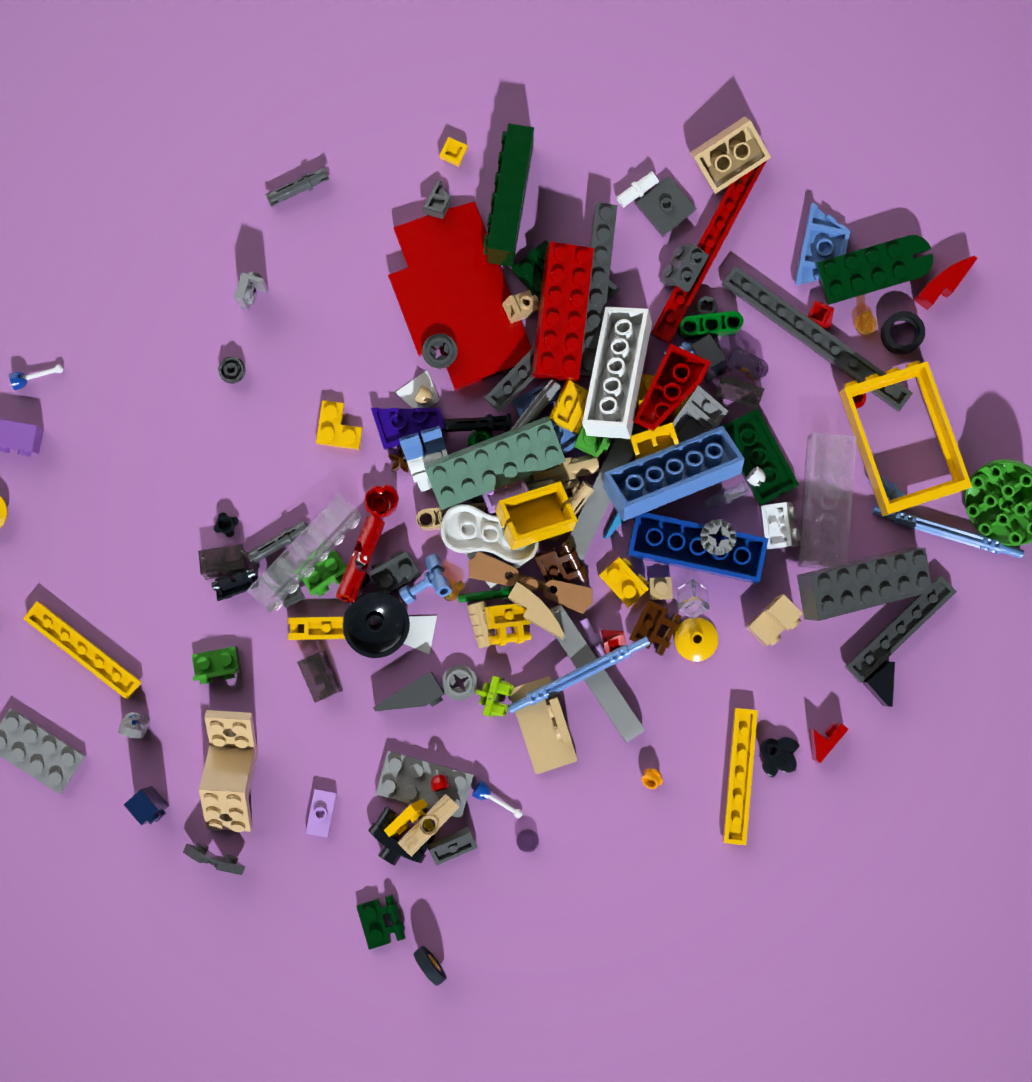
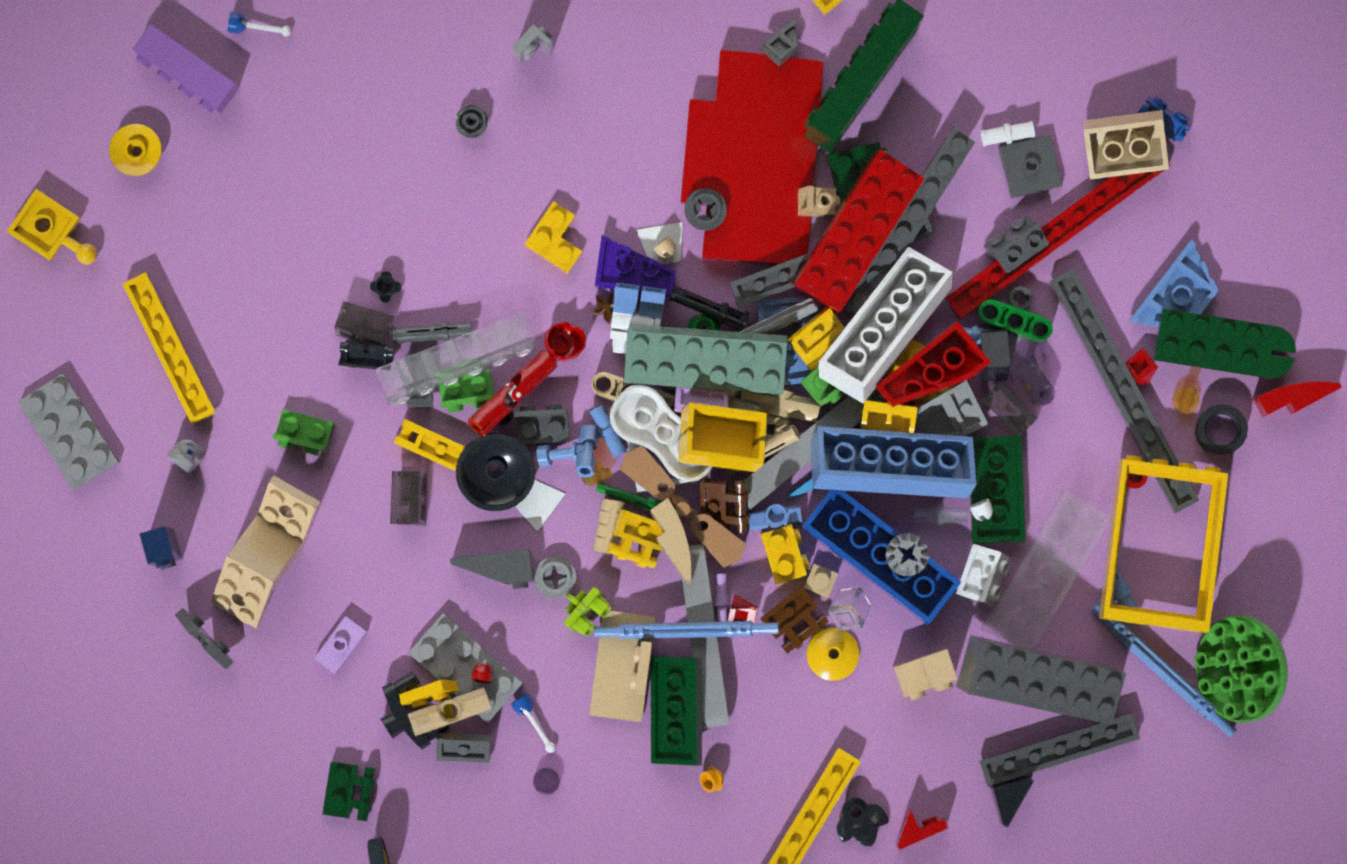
camera: 25 degrees right, 0 degrees up
(446, 553) = (607, 432): none -> medium blue pin
(600, 739) = (676, 710): none -> dark green plate
(603, 557) = (775, 516): none -> medium blue bar
(759, 122) = (1174, 123): none -> blue hinge

